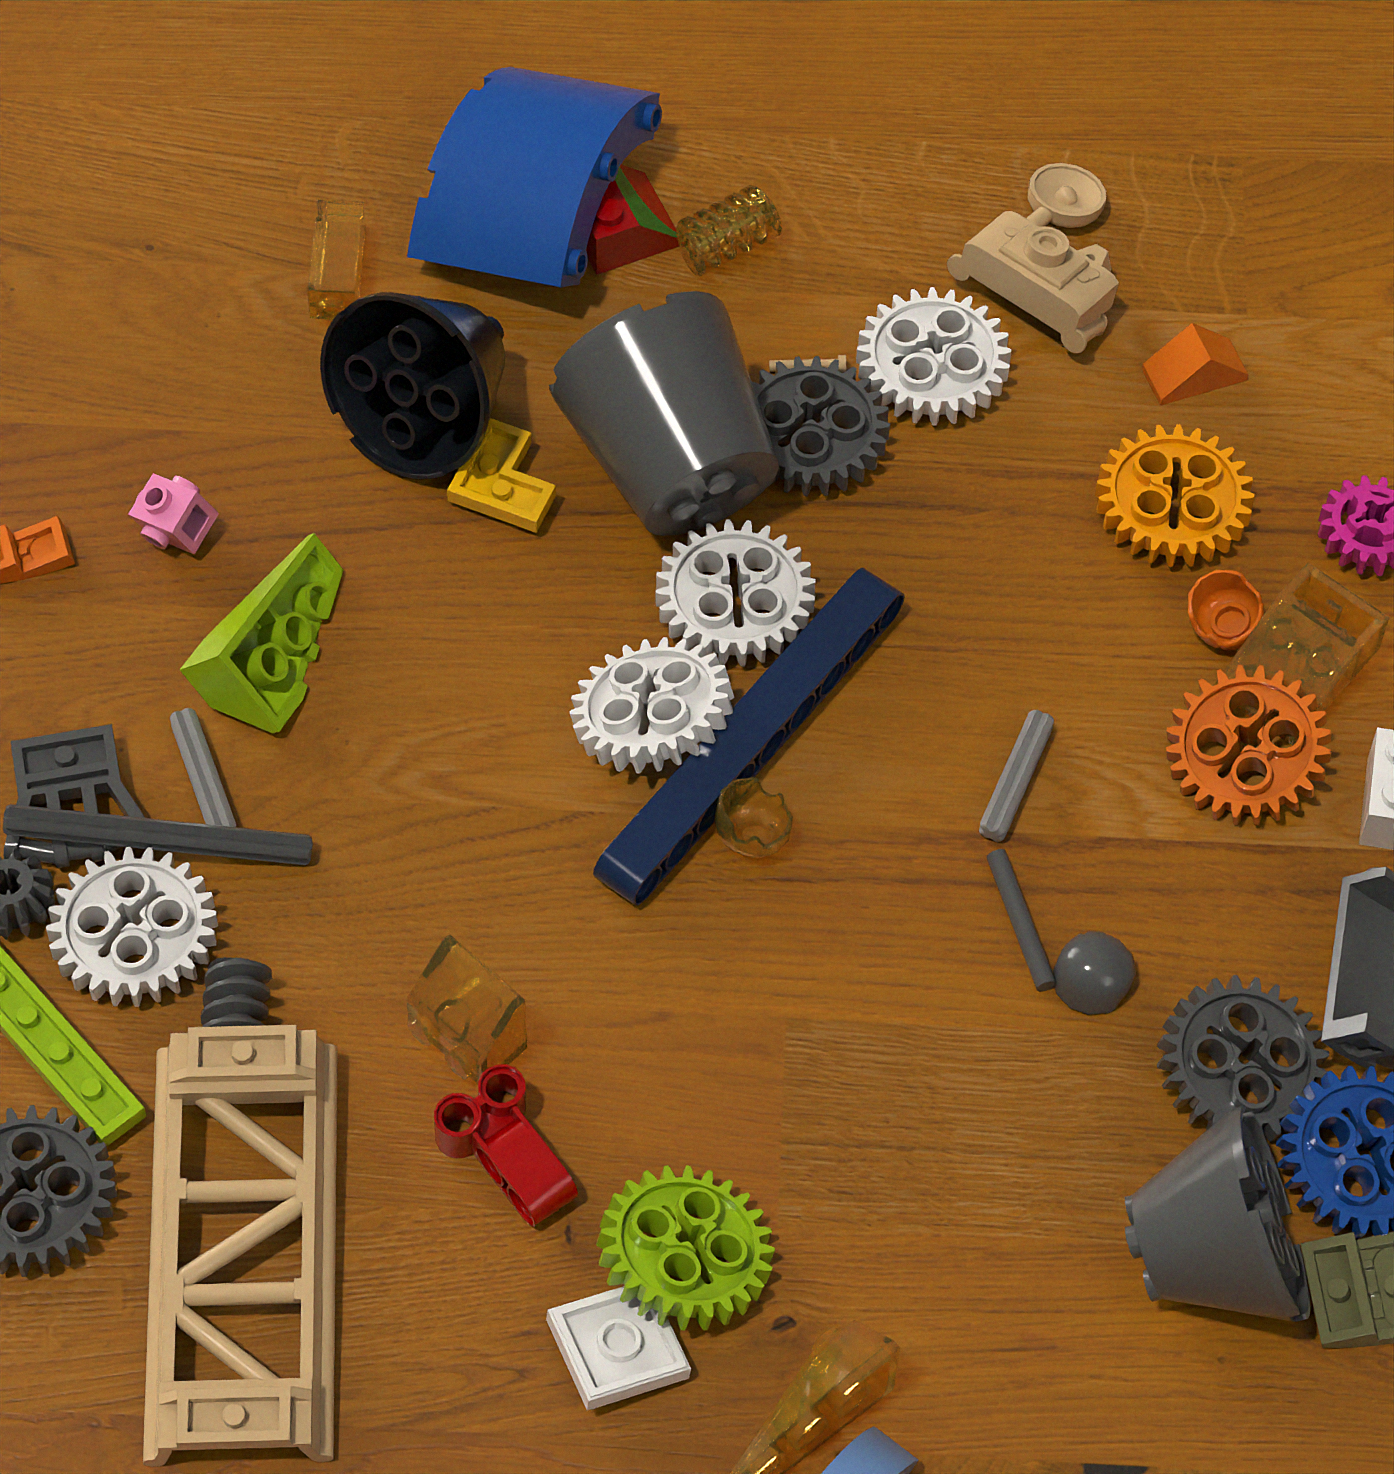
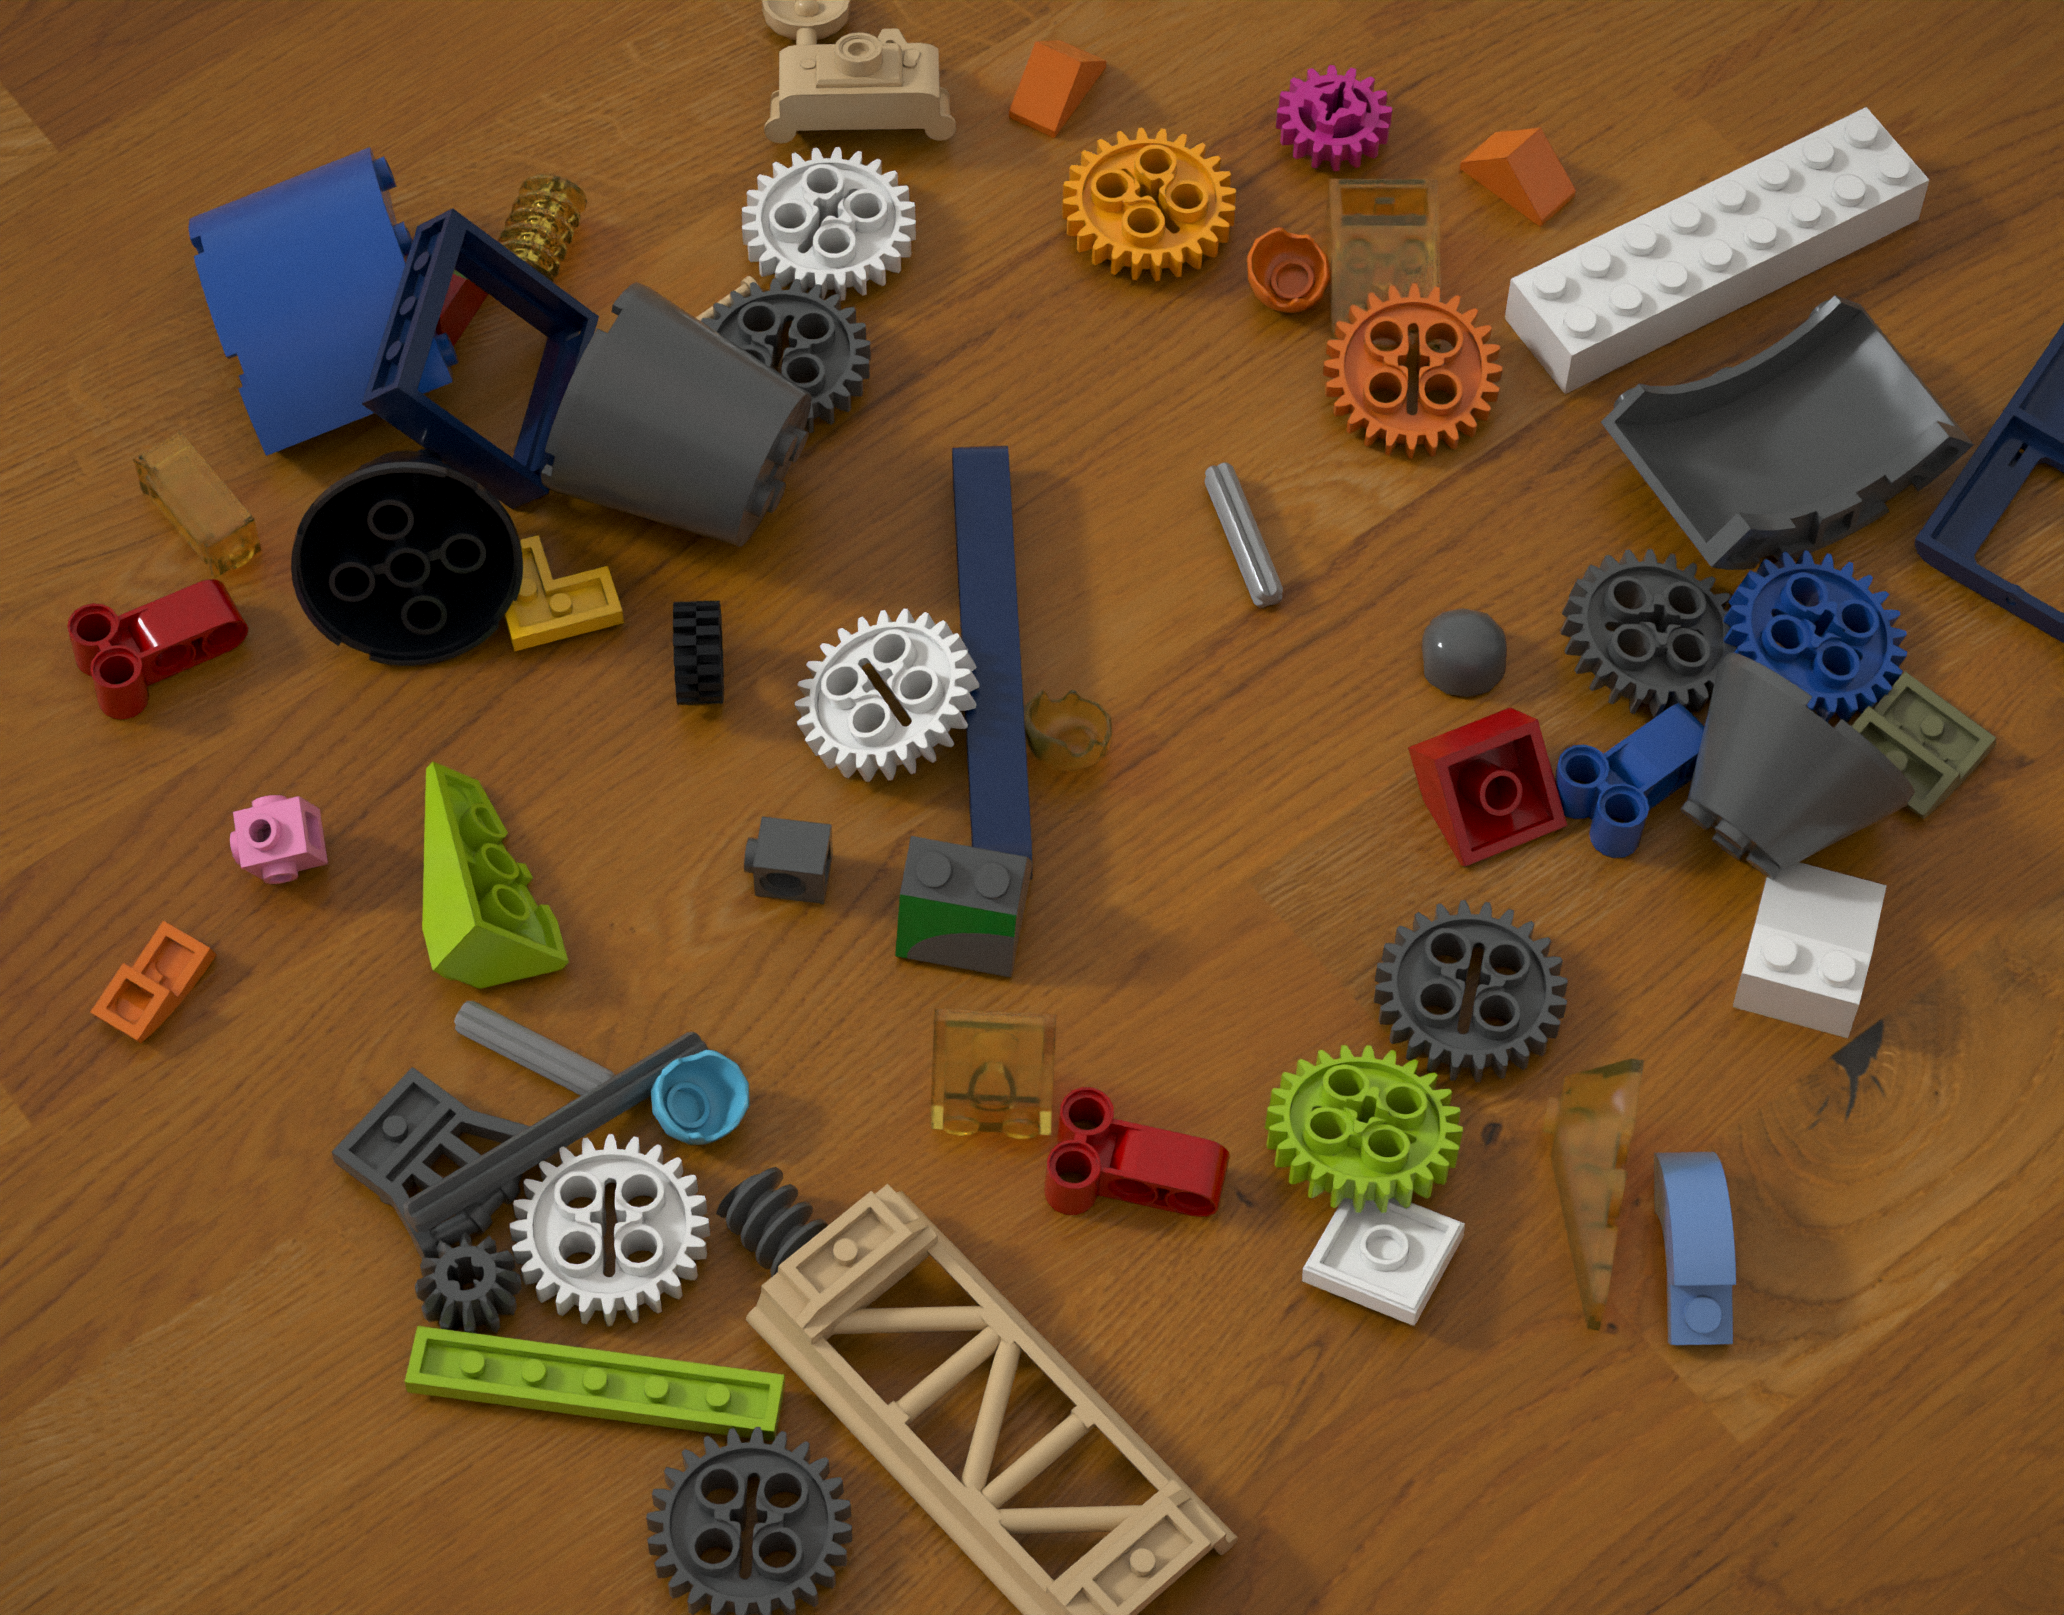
camera: 40 degrees left, 0 degrees up
(223, 330) = (152, 642): none -> red piece
(266, 882) = (700, 1097): none -> medium azure hair
(485, 770) = (790, 859): none -> dark grey brick
(552, 584) = (698, 652): none -> black tyre
(560, 882) = (962, 906): none -> dark grey slope
(618, 179) = (392, 392): none -> dark blue window
(782, 589) = (857, 547): white gear -> none
(889, 1245) = (1525, 1001): none -> dark grey gear
(1013, 1078) = (1489, 785): none -> red slope
(1021, 920) = (1362, 653): dark grey bar -> none
(1117, 1149) = (1629, 778): none -> blue piece
(1140, 1371) = (1811, 948): none -> white slope

